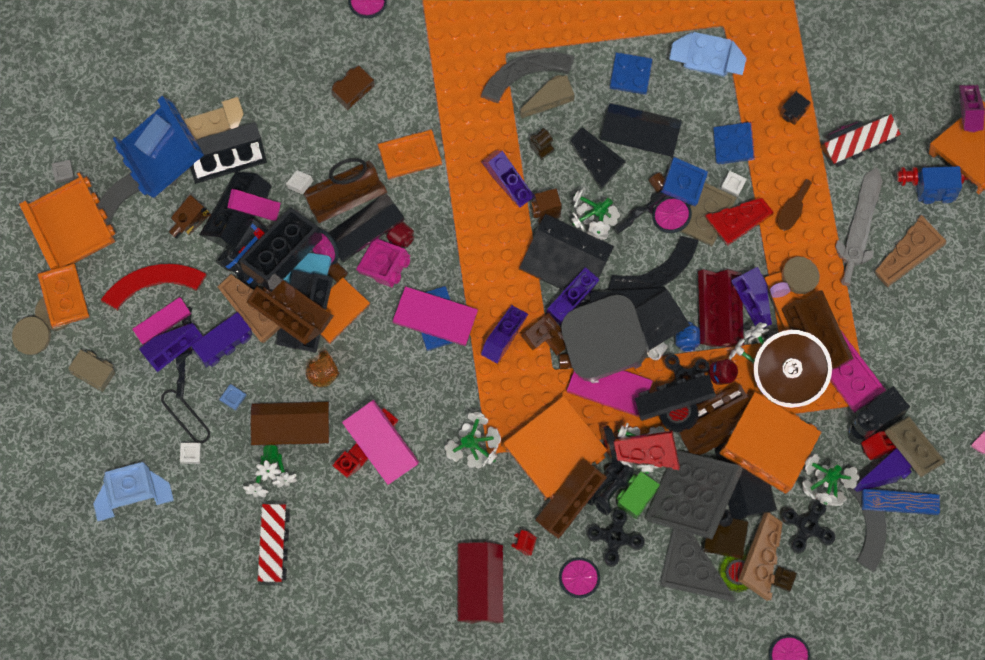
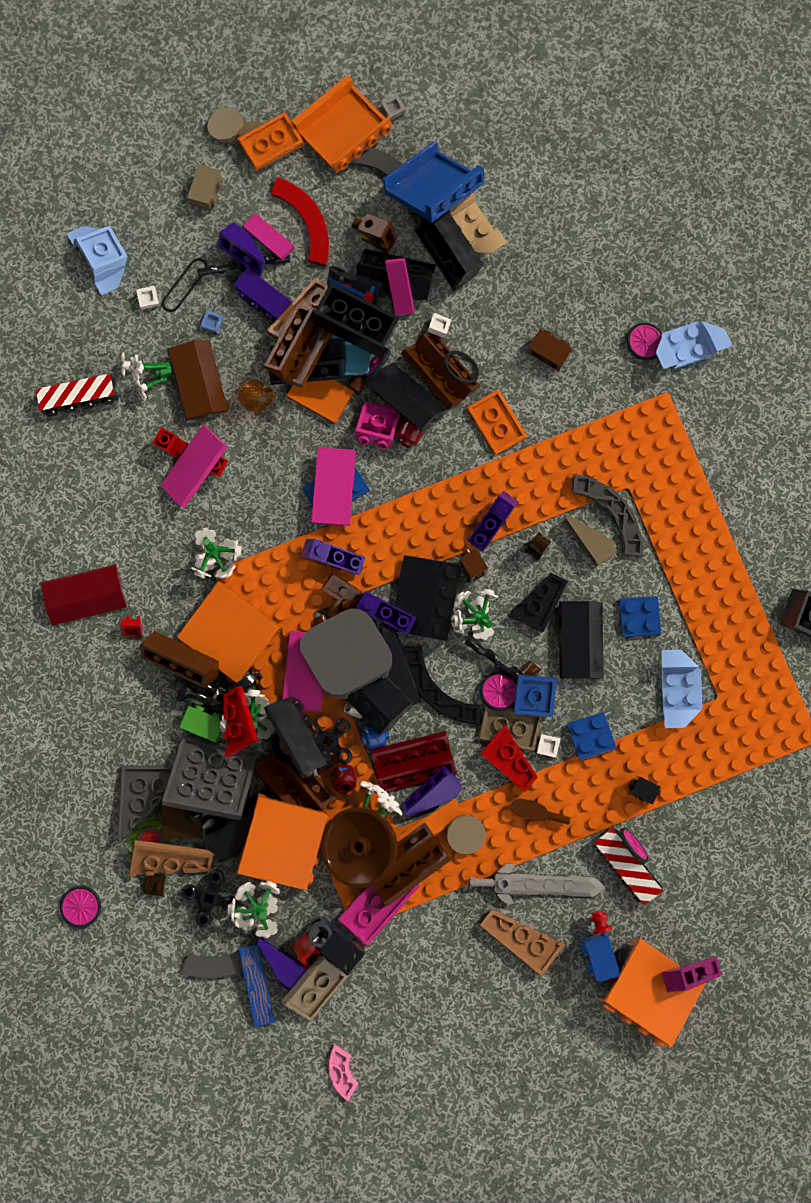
camera: 80 degrees right, 10 degrees up
(152, 135) = (444, 173): medium blue tile -> none
(579, 577) = (112, 687): dark pink wheel -> none
(614, 545) = (148, 712): black gear -> none
(779, 290) = (442, 816): lavender tile -> none

